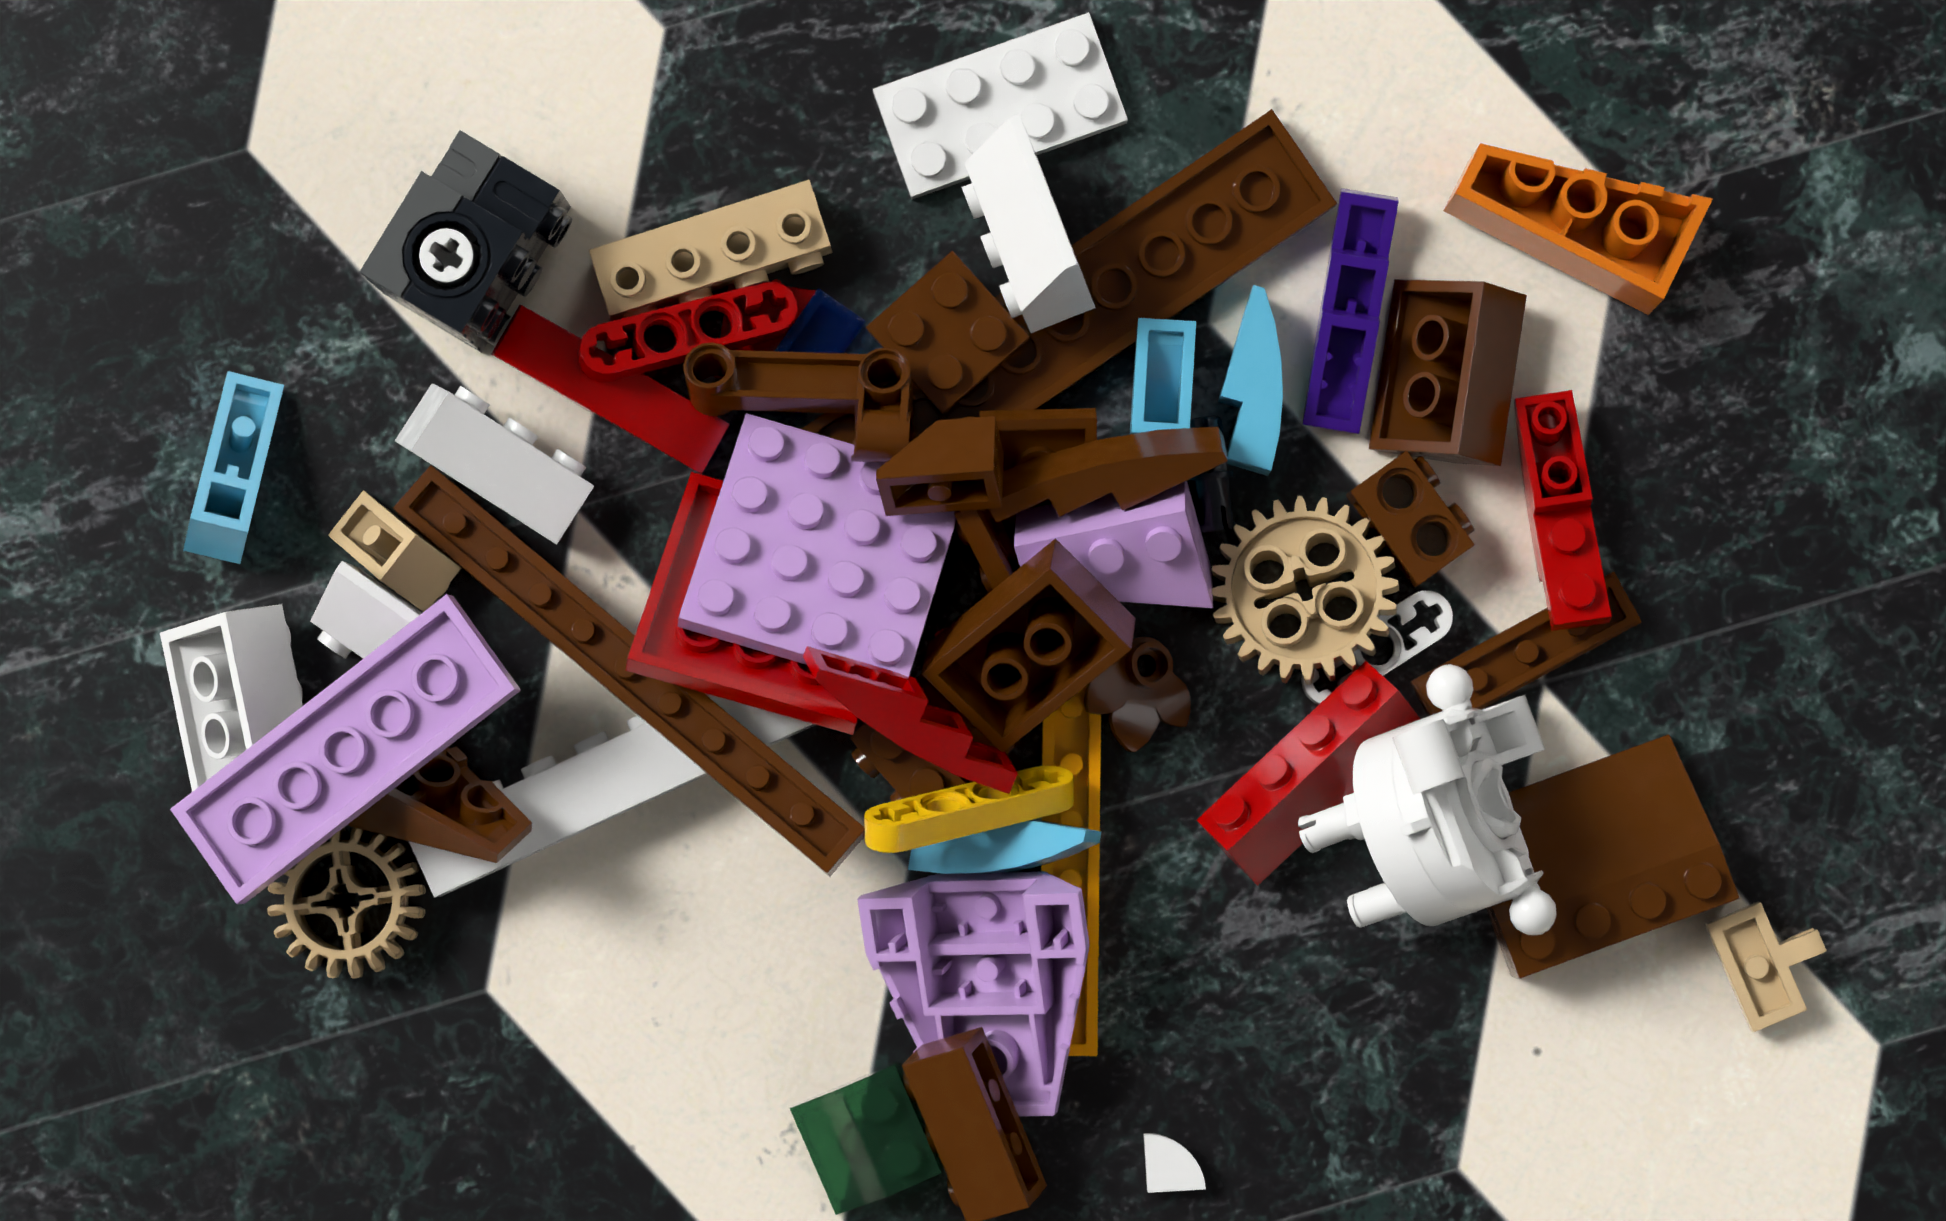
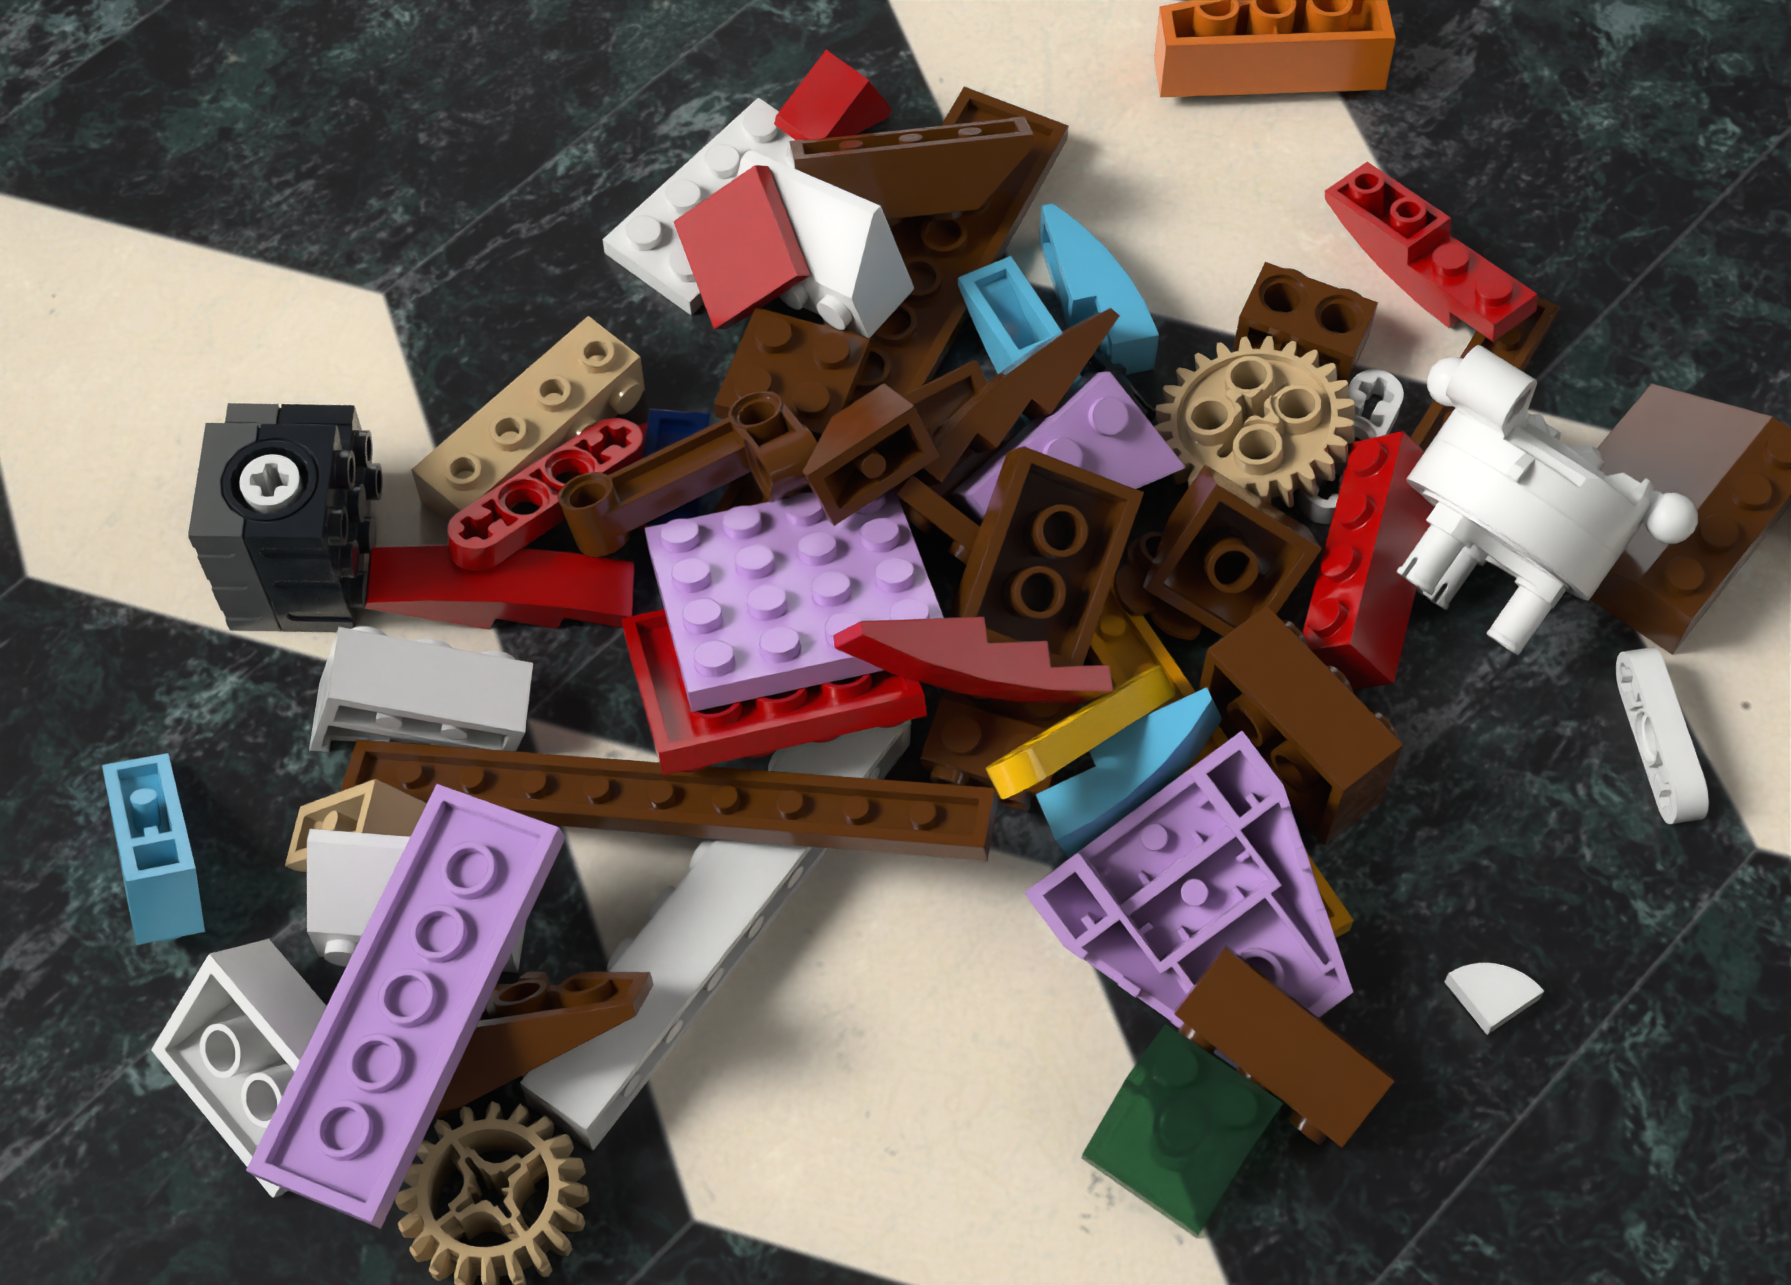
camera: 35 degrees left, 25 degrees down
(967, 194) = (741, 247): none -> tile
(1141, 69) = (831, 103): none -> red slope
(1154, 884) = (1302, 722): none -> reddish brown brick
(1161, 186) = (920, 169): none -> reddish brown wedge
(1198, 706) = (1228, 554): none -> reddish brown slope
(1350, 311) = (1136, 203): dark purple slope -> none
(1441, 1044) = (1662, 736): none -> white beam
(1448, 371) = (1251, 198): reddish brown slope -> none

